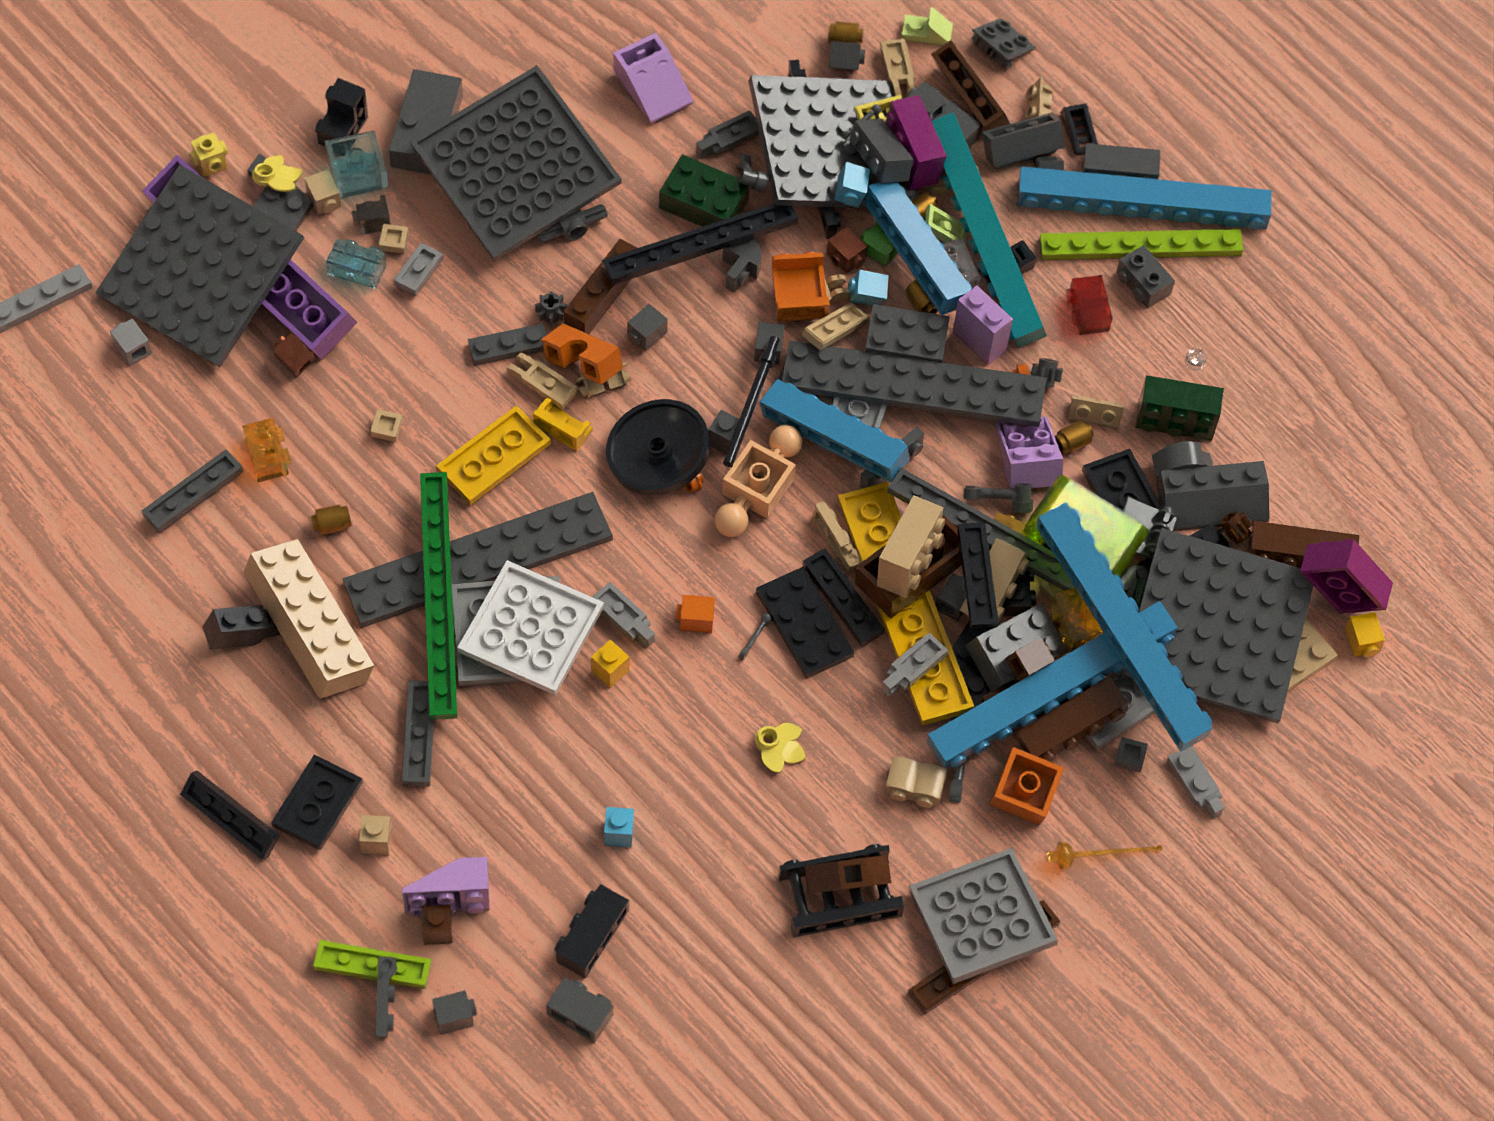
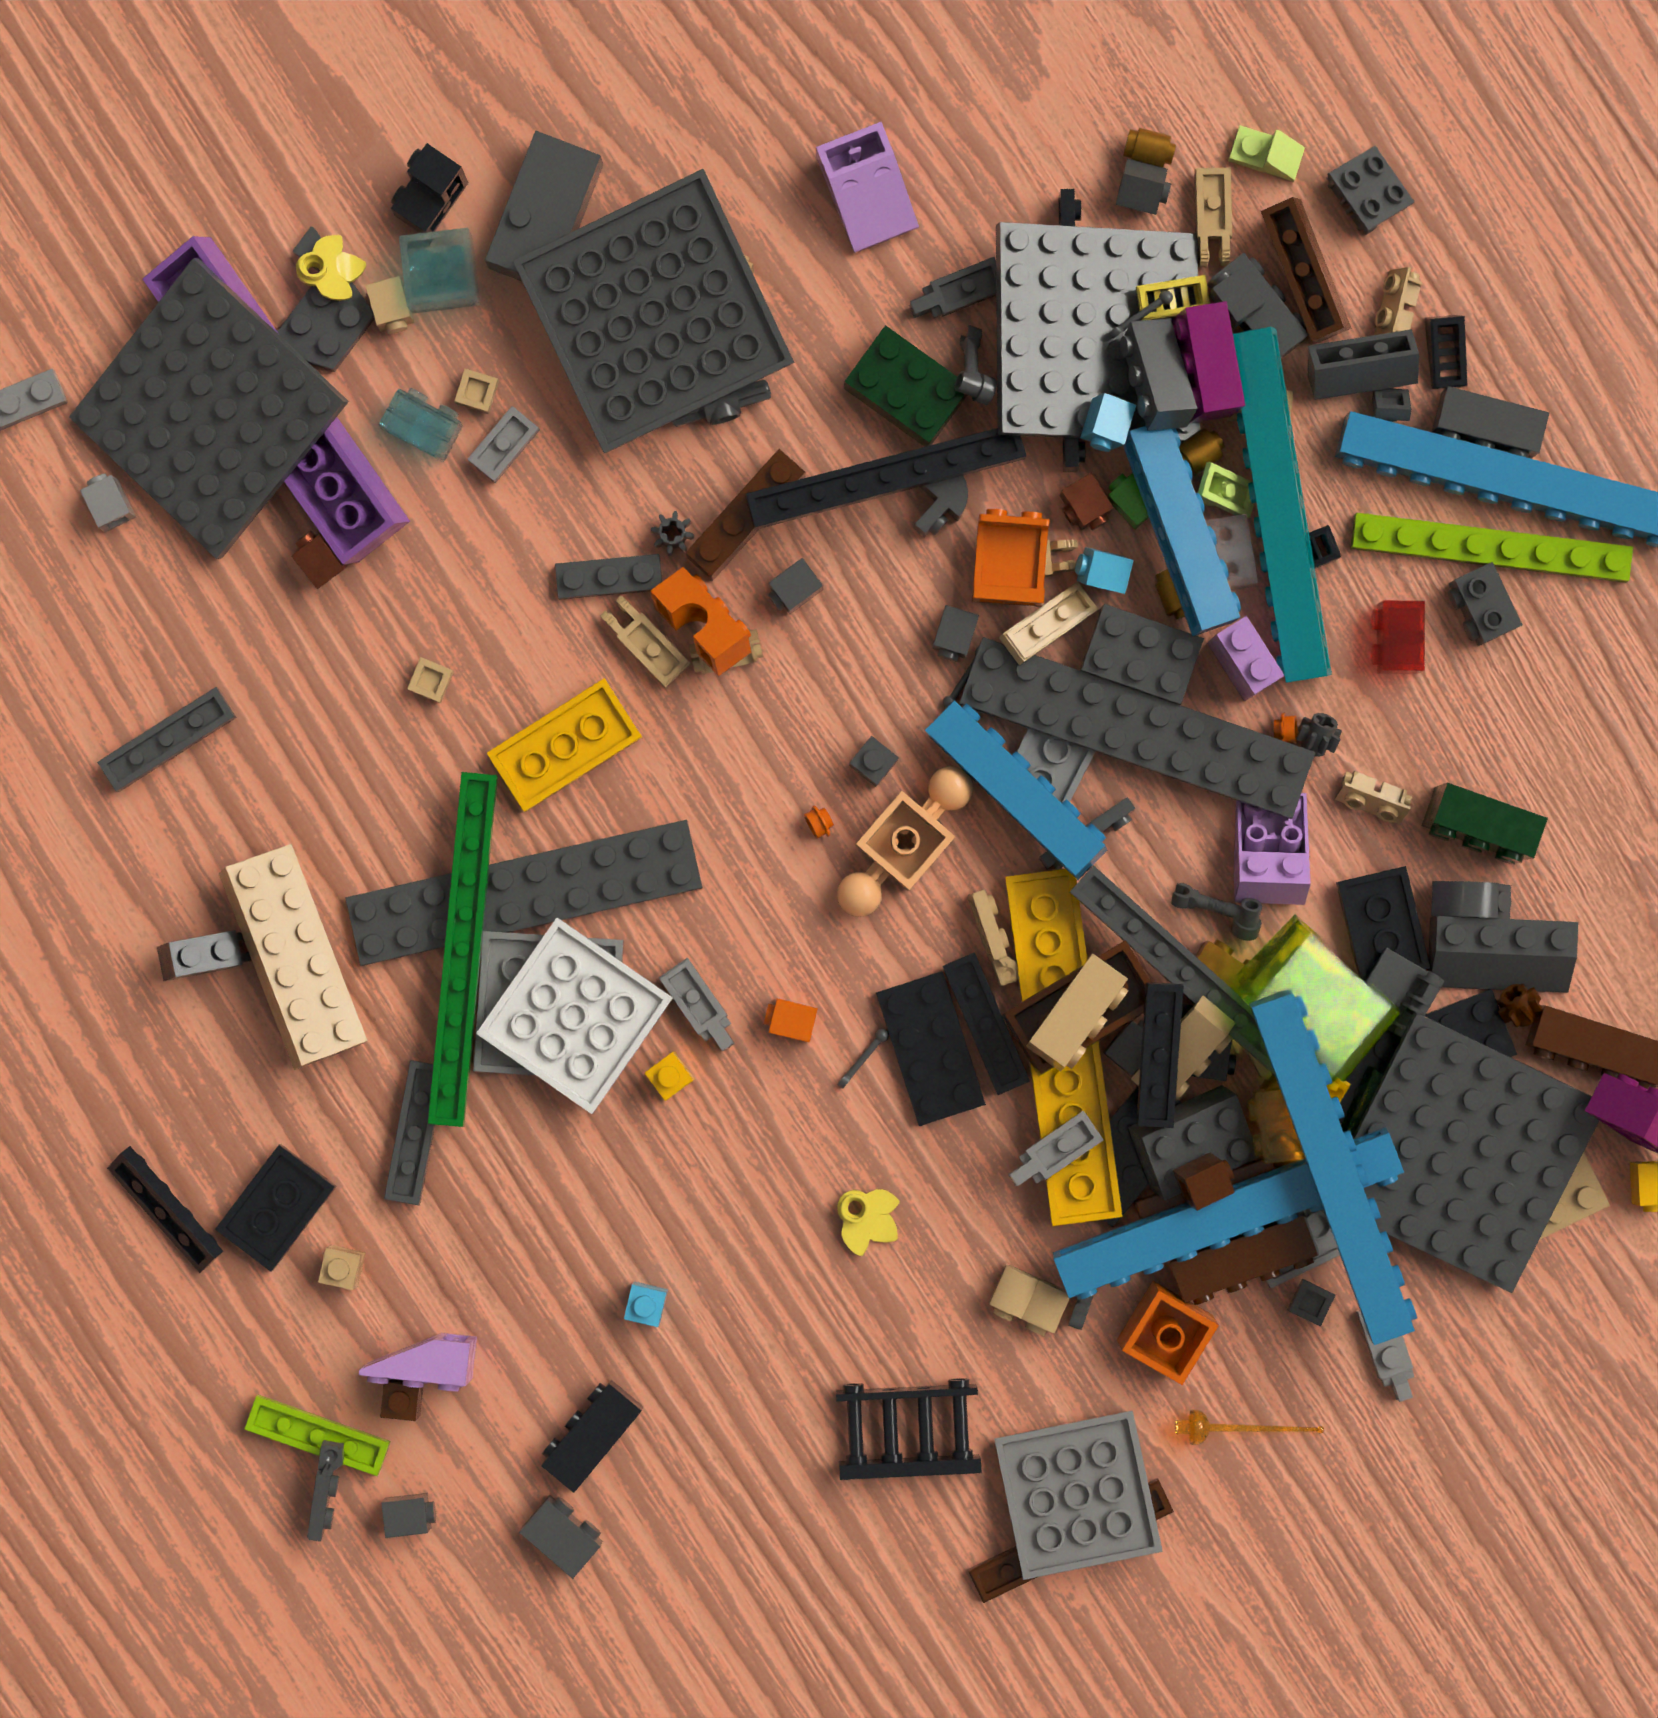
camera: 10 degrees right, 25 degrees up
(209, 154) = (248, 231): light yellow brick -> none
(265, 449) = (269, 694): clear yellow brick -> none
(331, 519) = (340, 810): pearl gold brick -> none
(371, 216) = (451, 352): clear smoke brick -> none
(561, 425) = (662, 711): yellow hinge -> none
(658, 447) = (780, 773): black dish -> none
(765, 362) = (945, 671): black bar -> none
(847, 874) = (919, 1426): reddish brown slope -> none
(1074, 437) = (1334, 836): pearl gold brick -> none
(1198, 361) = (1529, 743): clear hinge -> none

